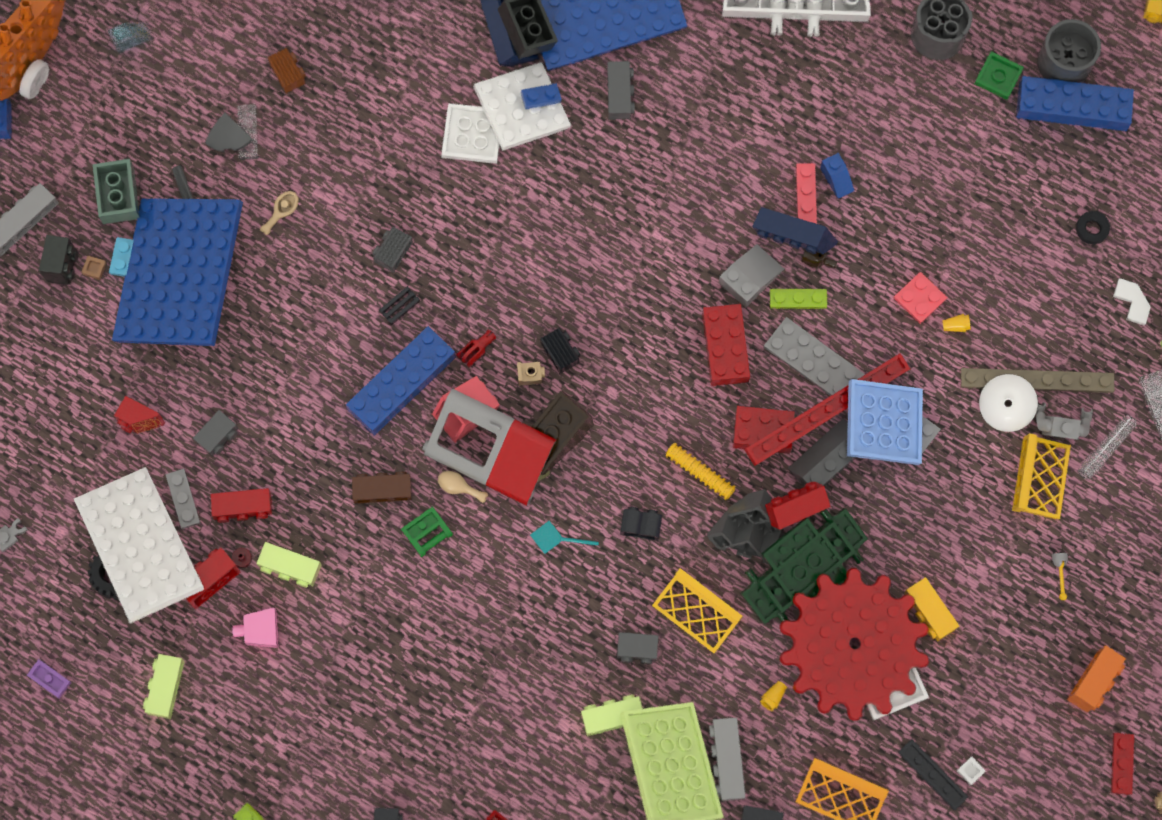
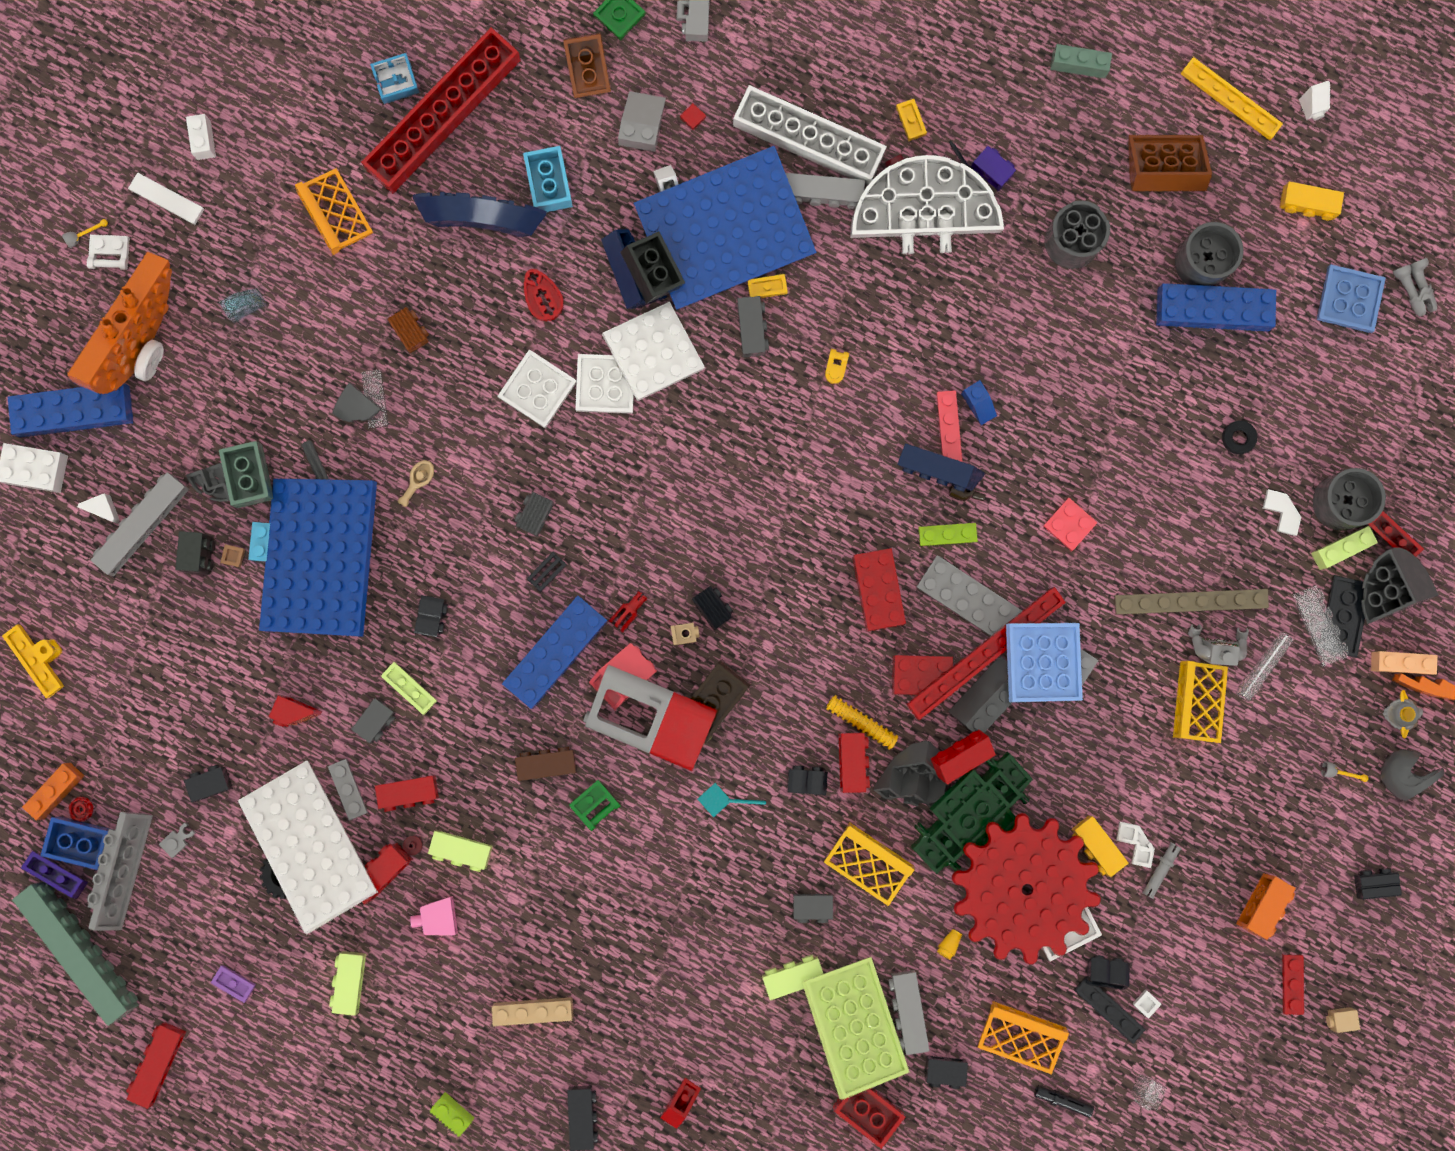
camera: 10 degrees left, 10 degrees up
(45, 481) = (208, 784): none -> black brick
(79, 201) = (208, 482): none -> dark grey brick
(253, 405) = (409, 688): none -> yellowish green plate
(281, 338) = (430, 616): none -> black brick
(346, 728) = (532, 1011): none -> tan brick
(406, 133) = (537, 388): none -> white plate
(411, 54) = (534, 302): none -> red piece
(456, 484) = (618, 753): tan piece -> none
(541, 96) = (672, 340): blue plate -> none
(638, 54) = (768, 286): none -> yellow plate
(688, 506) = (853, 762): none -> red brick
(697, 139) = (835, 373): none -> yellow plate
(750, 275) = (899, 513): light grey slope -> none
(933, 735) = (1108, 973): none -> black brick
(957, 324) = (1109, 549): yellow cone -> none
(968, 603) = (1143, 849): none -> white tile
(993, 639) = (1161, 870): none -> light grey pin
(999, 75) = (1137, 282): green plate -> none
(1008, 388) = (1163, 616): white dish -> none
(1060, 561) = (1224, 786): hinge -> none

